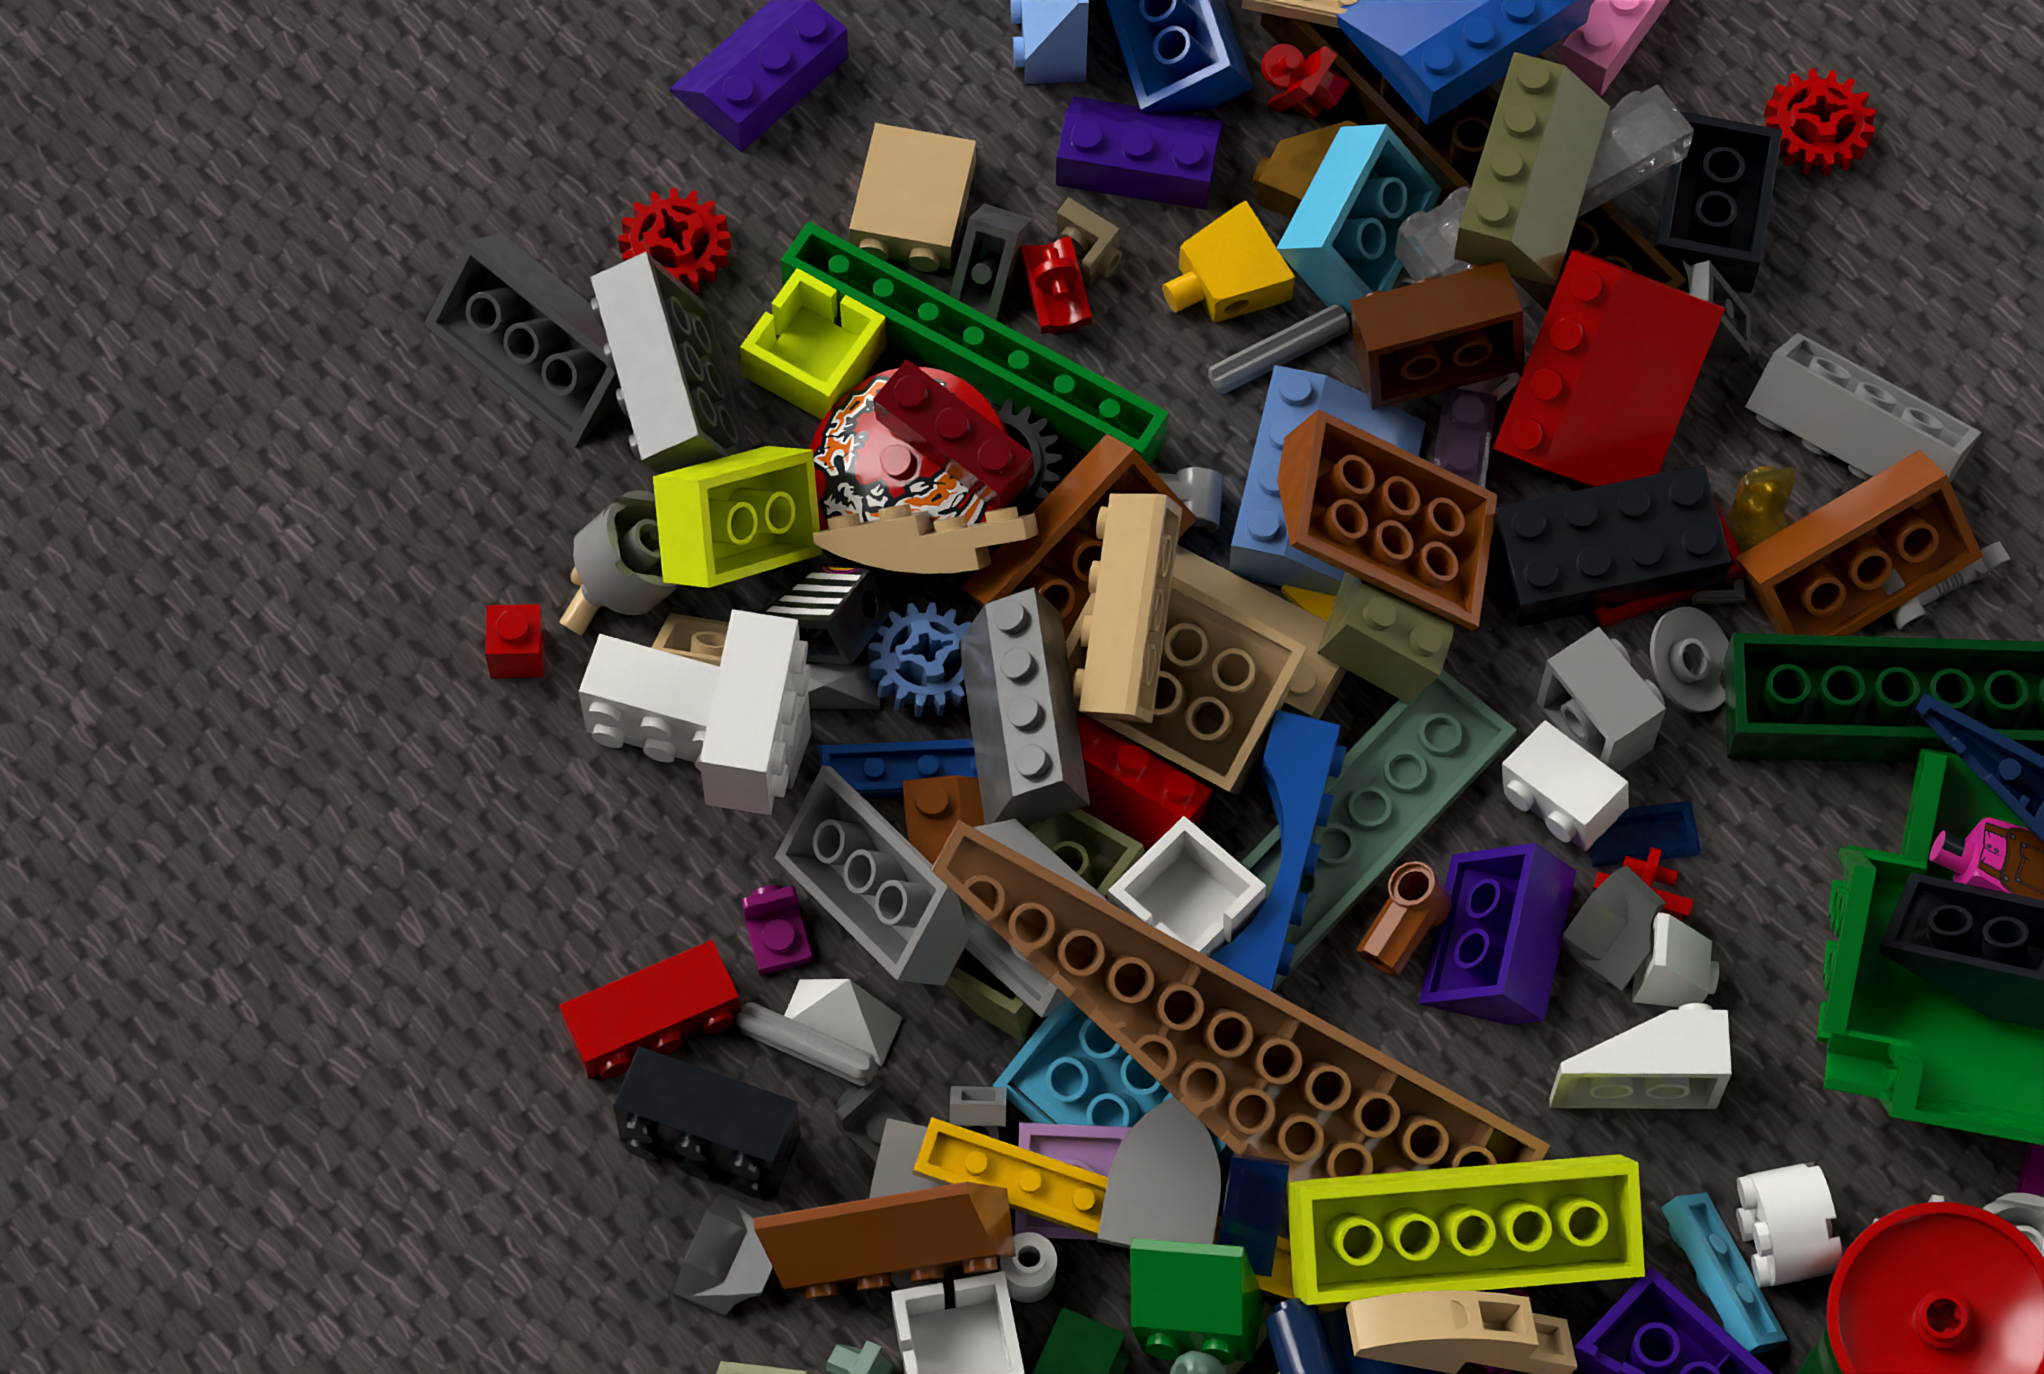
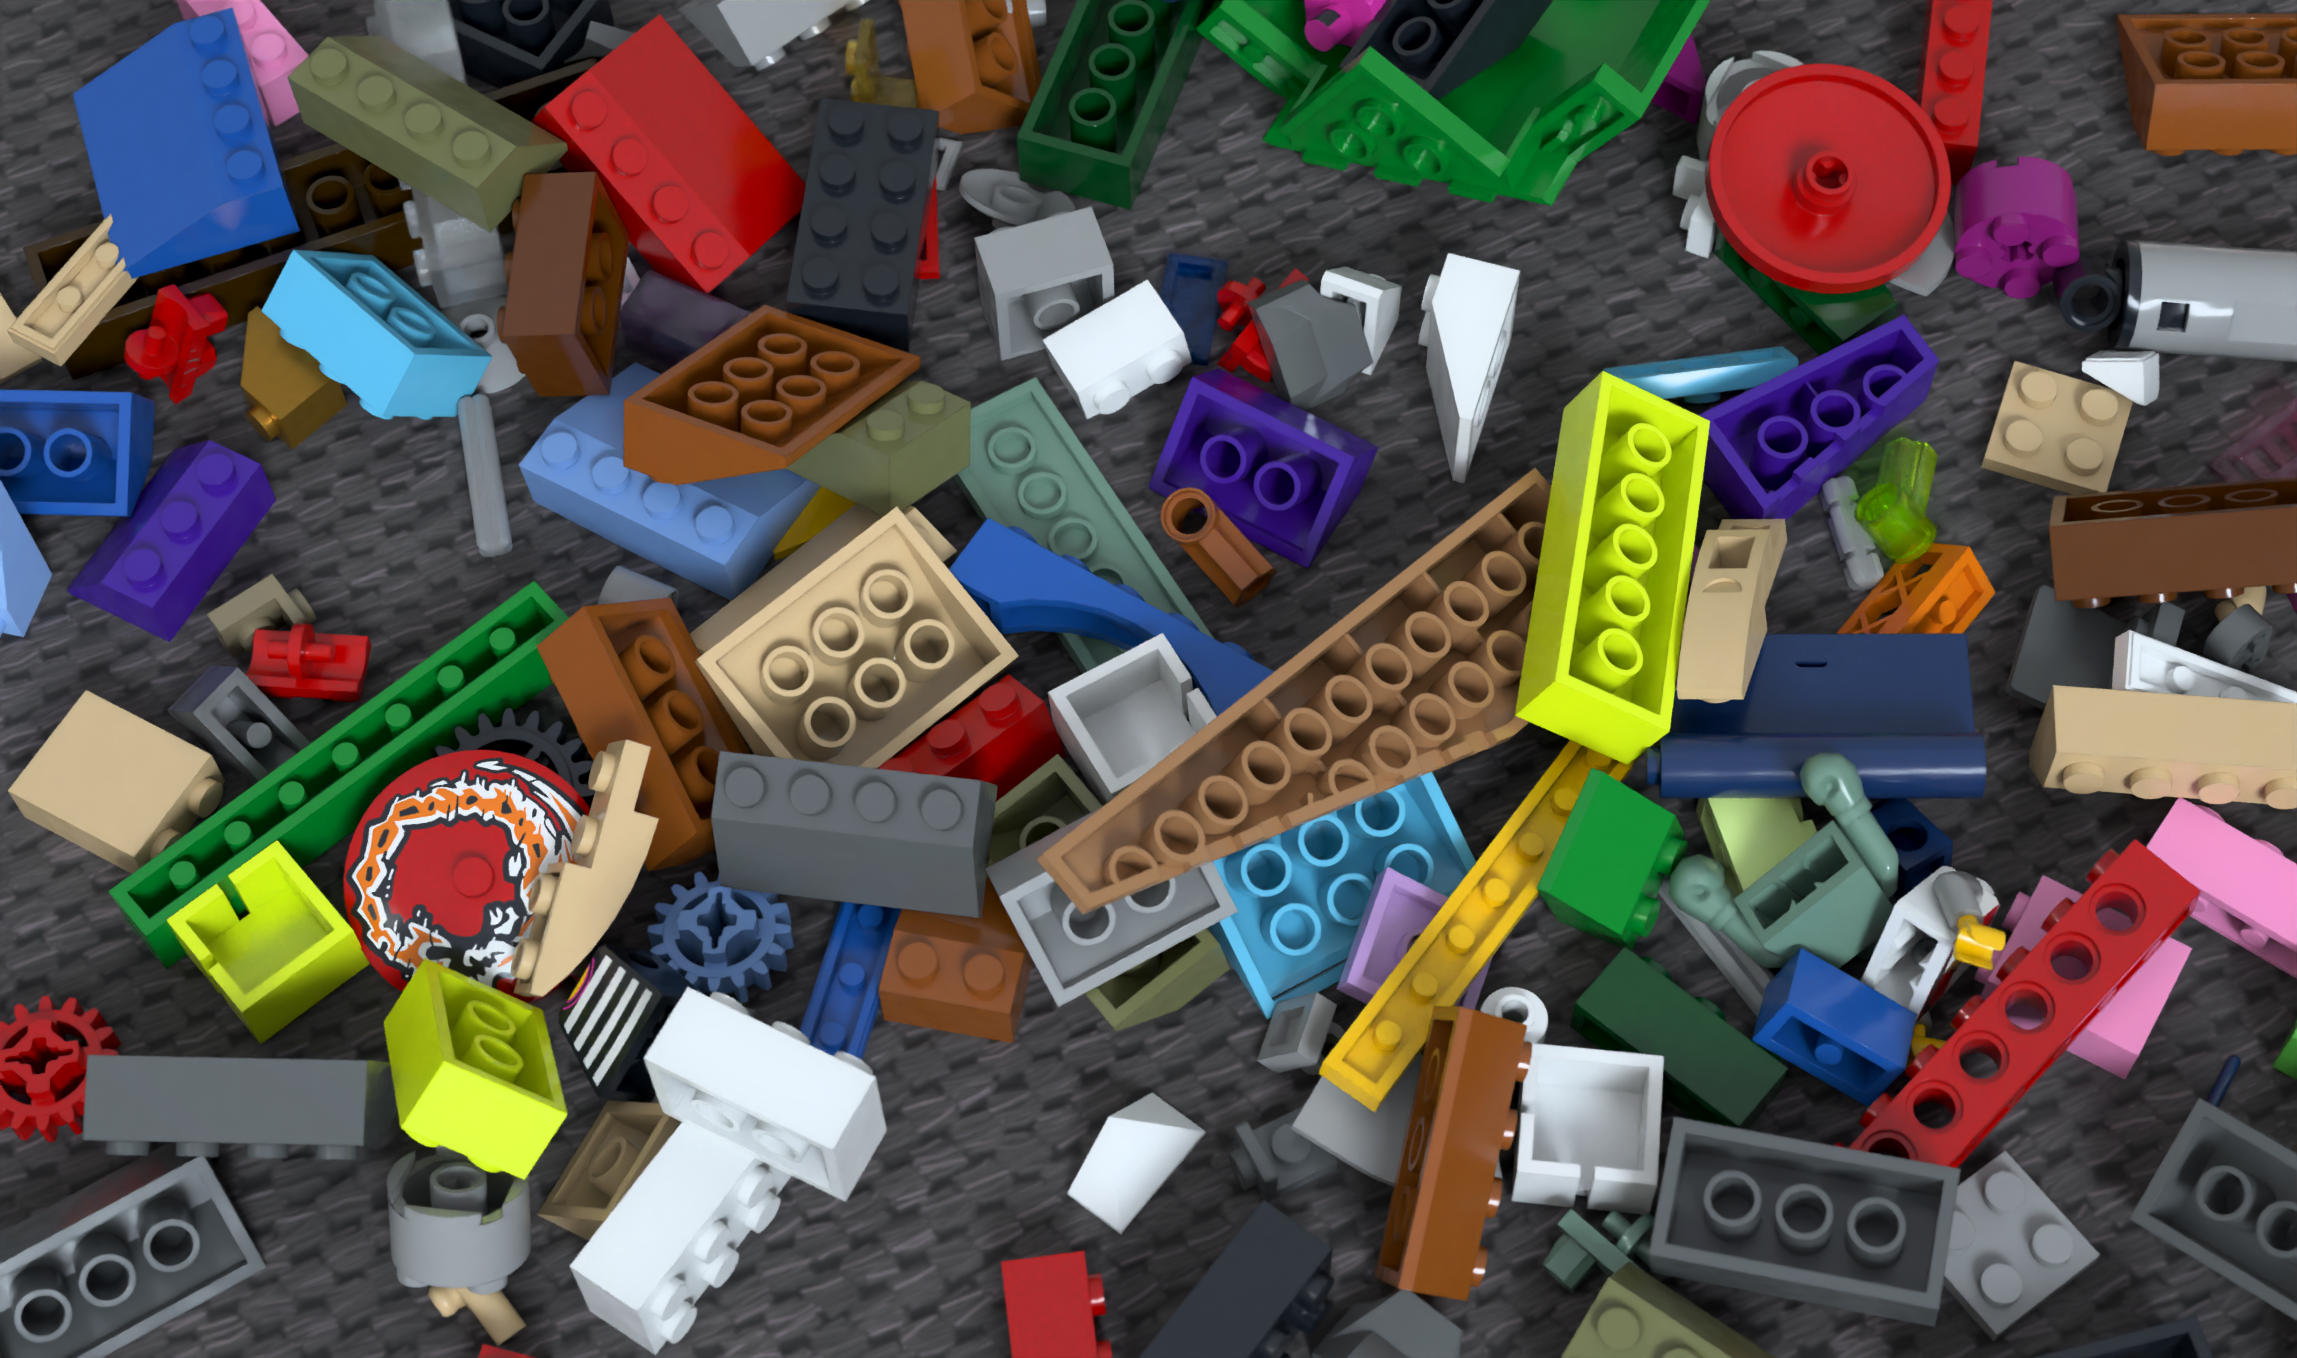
camera: 70 degrees left, 5 degrees down
(776, 929) = (999, 1199): magenta bracket -> none
(807, 1044) = (1164, 1195): light grey axle -> none
(874, 882) = (1008, 1040): light grey slope -> none
(953, 436) = (482, 790): dark red brick -> none
(1129, 607) = (787, 657): tan slope -> none
(1163, 1181) = (1467, 849): light grey shield -> none
(1230, 268) = (368, 486): yellow torso -> none
(1254, 1208) = (1530, 762): clear blue tile -> none
(1790, 1224) = (1674, 292): white brick -> none

